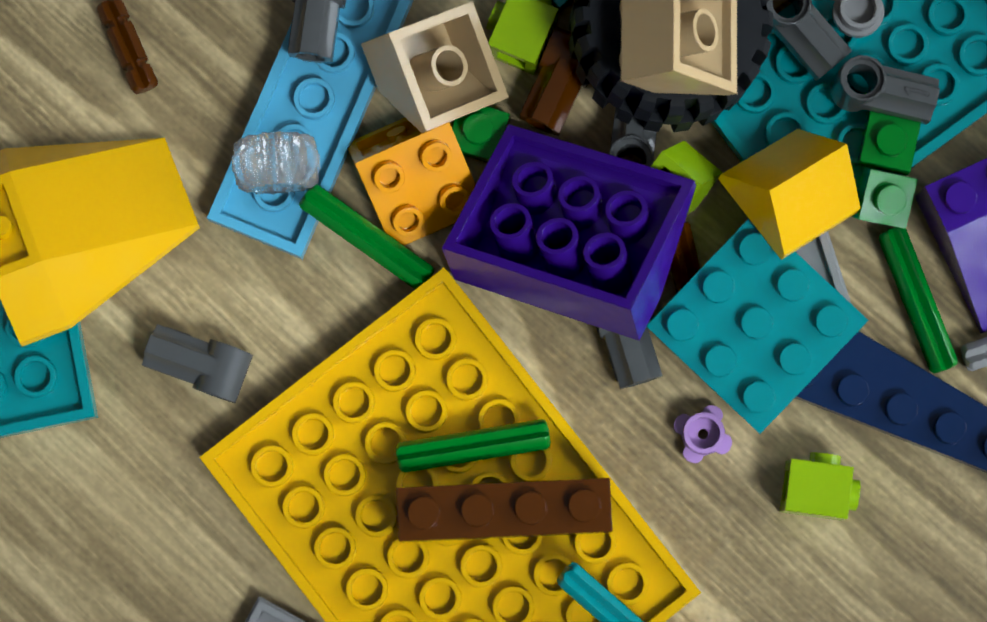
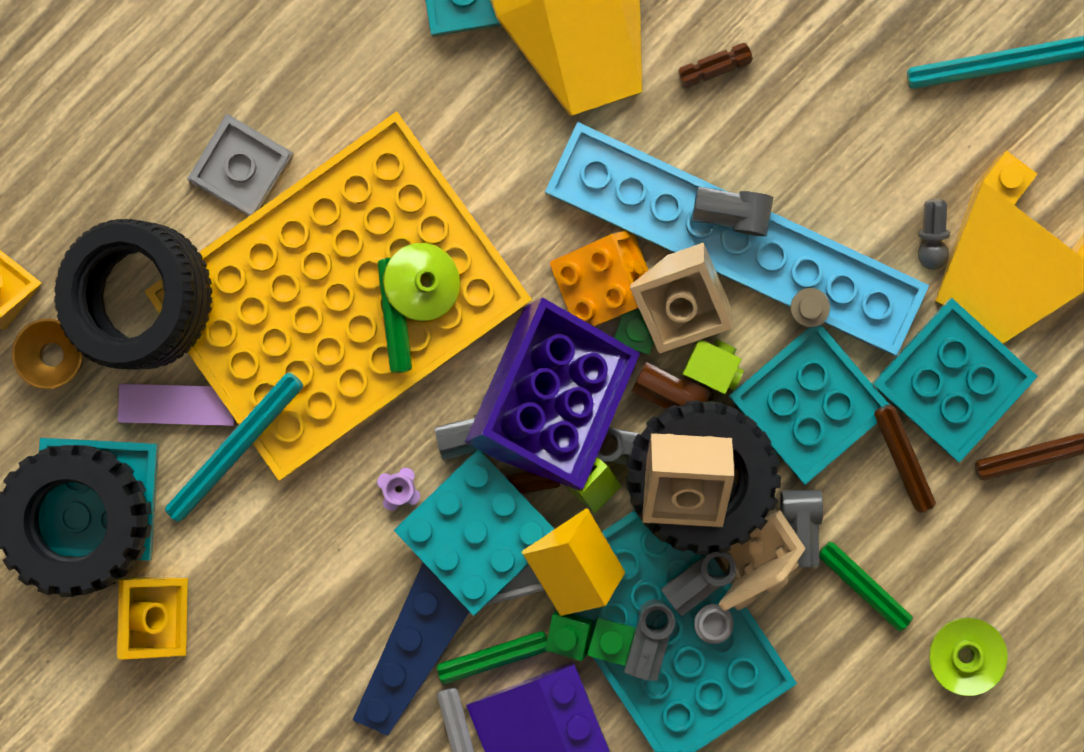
camera: 85 degrees right, 5 degrees up
(210, 366) = (465, 120): dark grey piece -> none
(276, 163) = (612, 174): clear gear -> none
(366, 236) = (557, 241): green axle -> none
(433, 431) = (404, 286): none -> lime dish
(504, 510) = (343, 335): reddish brown brick -> none
(819, 487) = (353, 573): lime brick -> none

